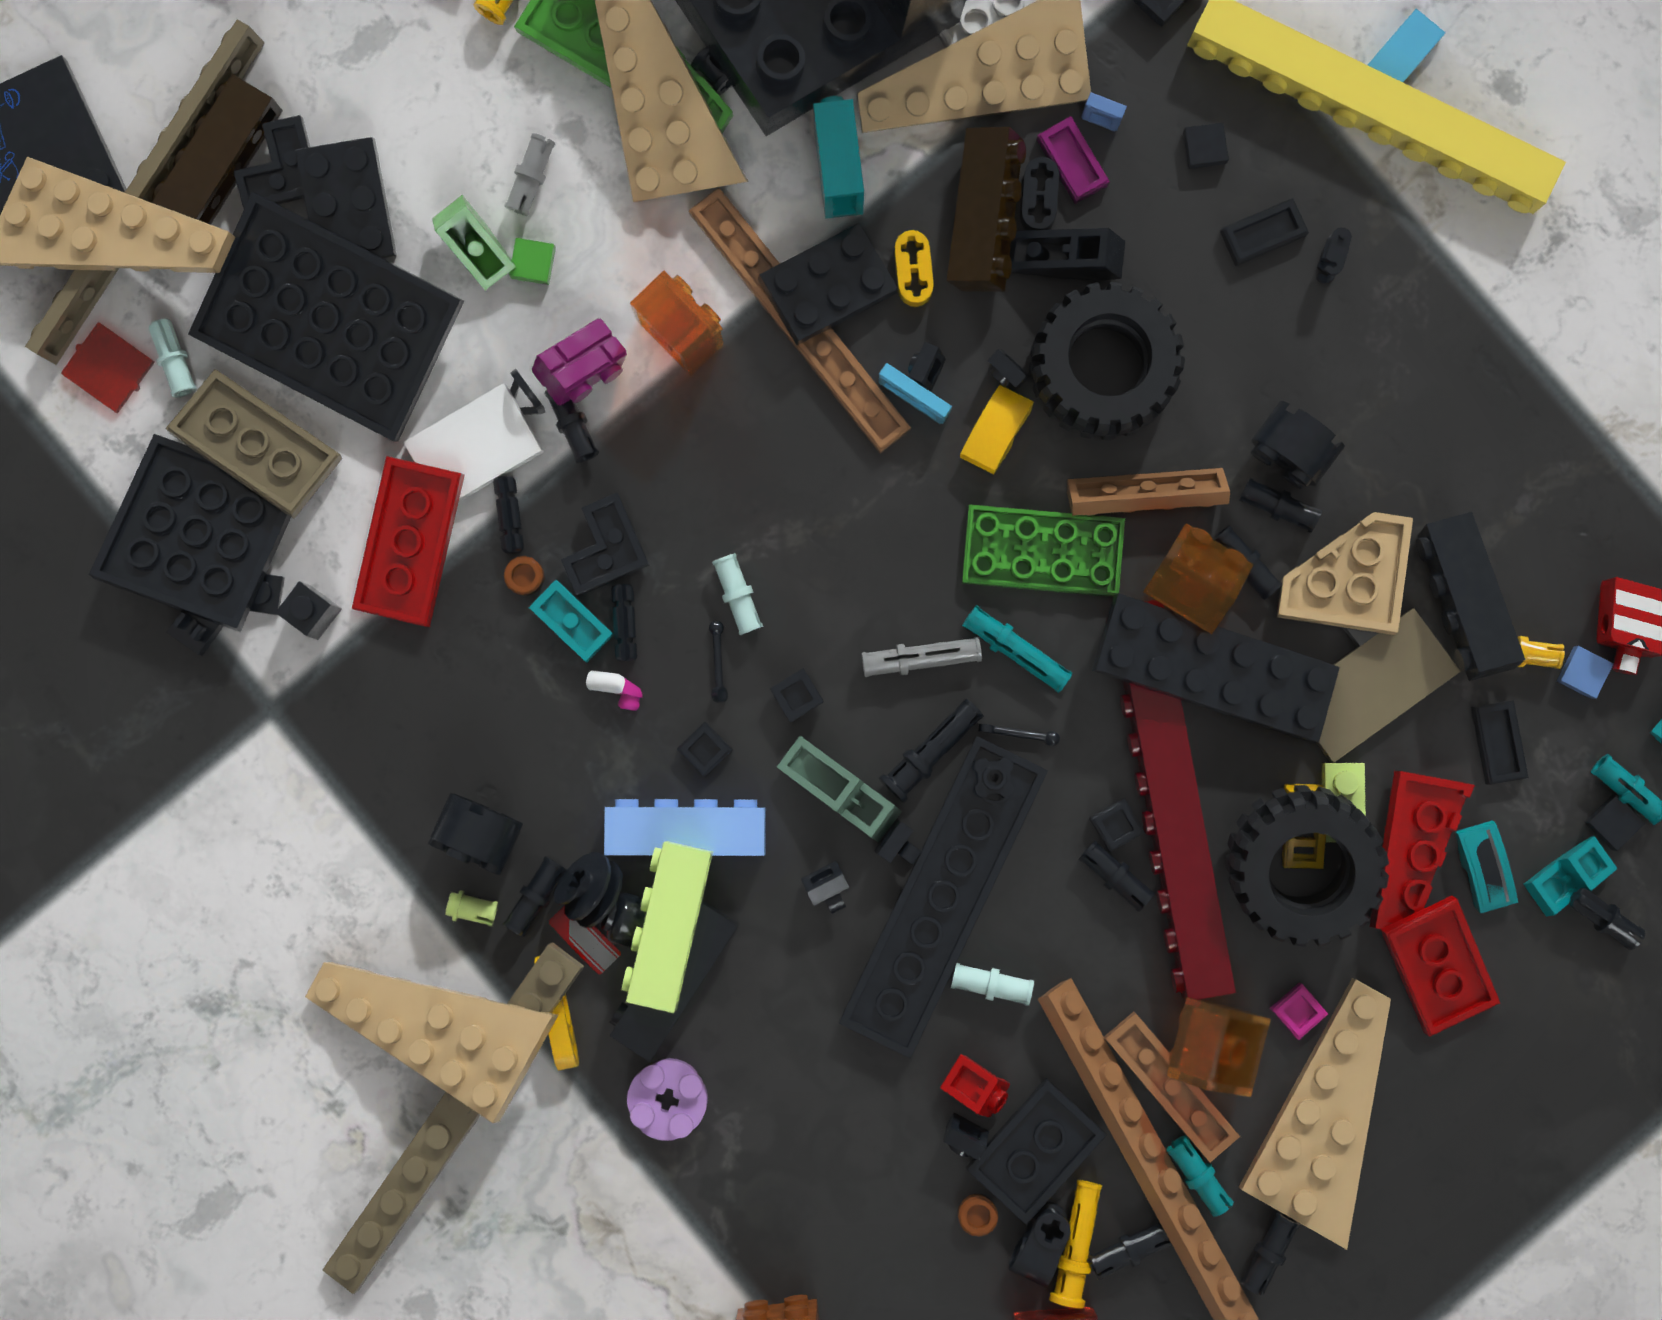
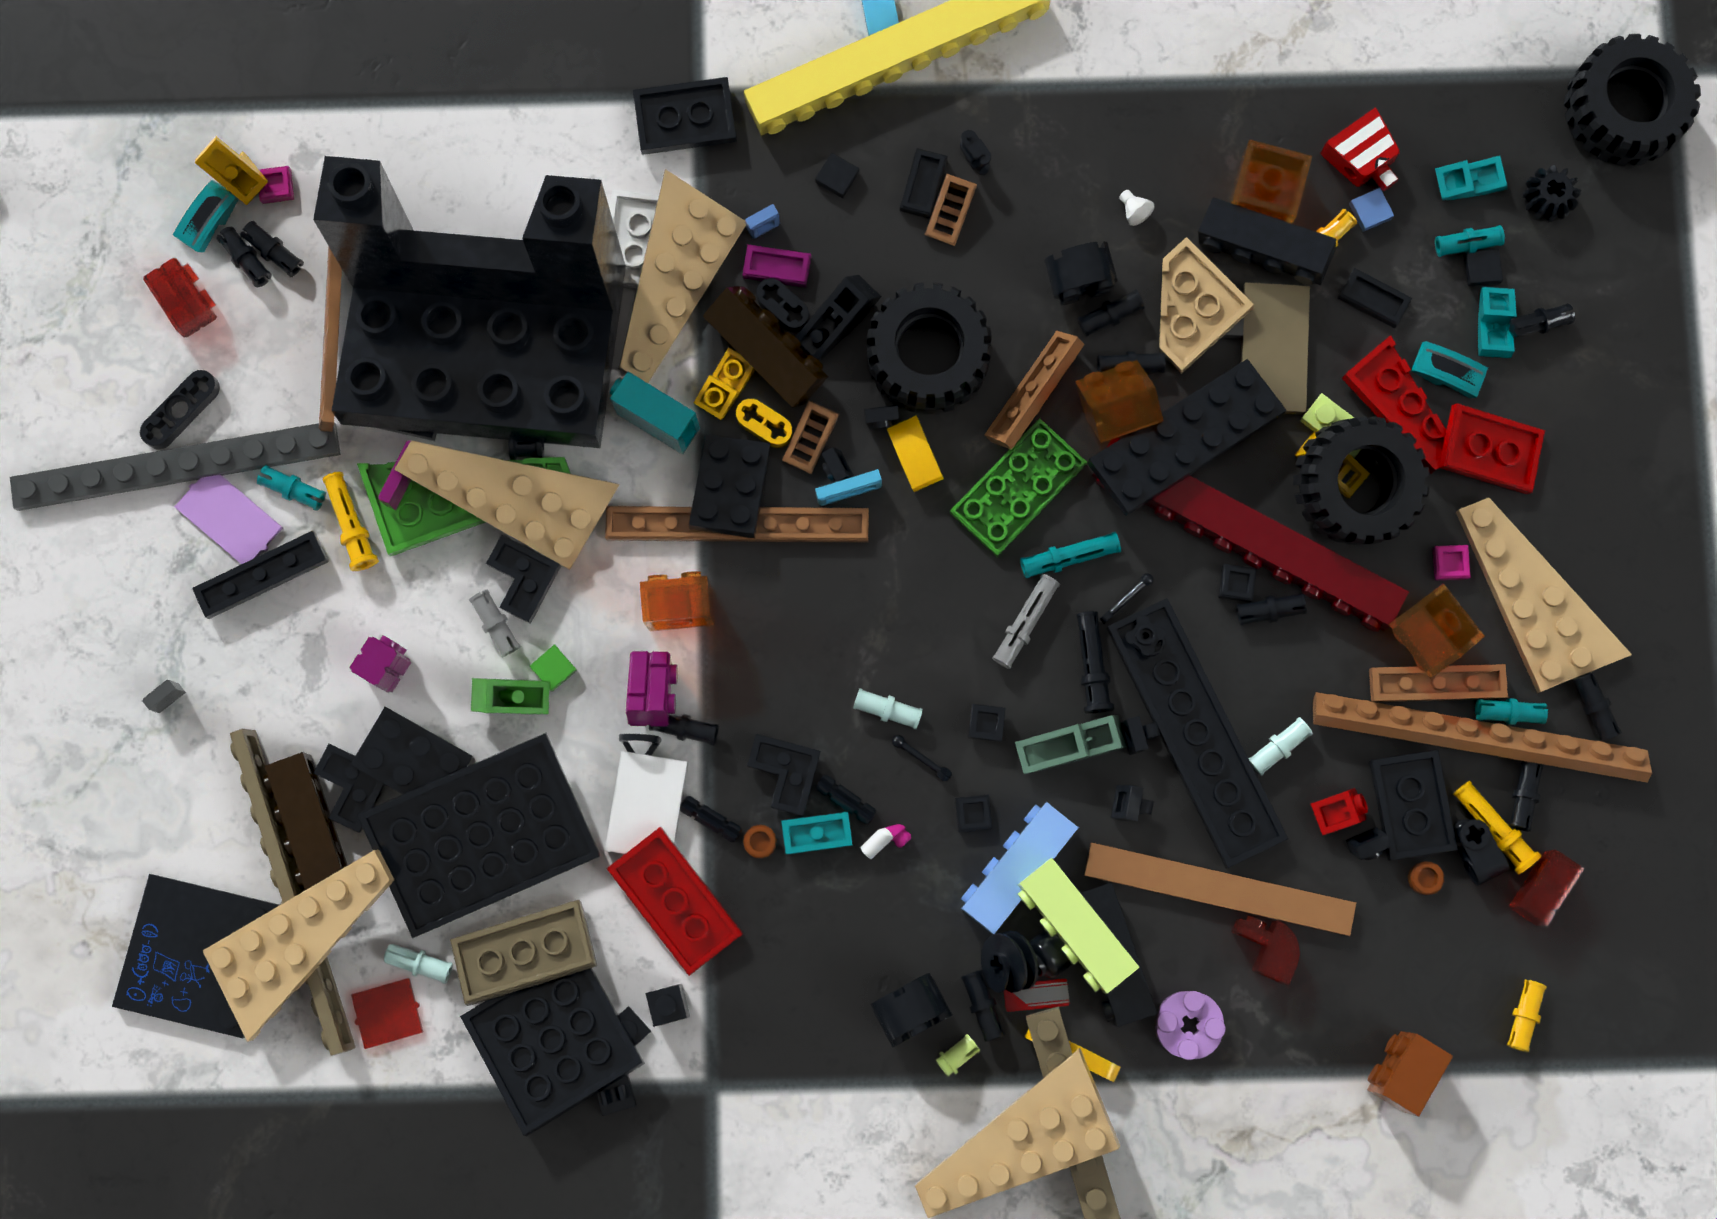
camera: 50 degrees left, 5 degrees down
(407, 101) = (381, 663): none -> magenta brick
(600, 172) = (531, 575): none -> black plate
(799, 1130) = (1278, 951): none -> clear red brick
(815, 1031) = (1220, 889): none -> medium nougat tile
(919, 203) = (725, 384): none -> yellow slope
(946, 303) = (819, 410): none -> medium nougat slope
(1284, 253) = (959, 184): none -> medium nougat slope
(1403, 450) = (1136, 208): none -> white rock
(1533, 554) = (1271, 180): none -> clear orange brick

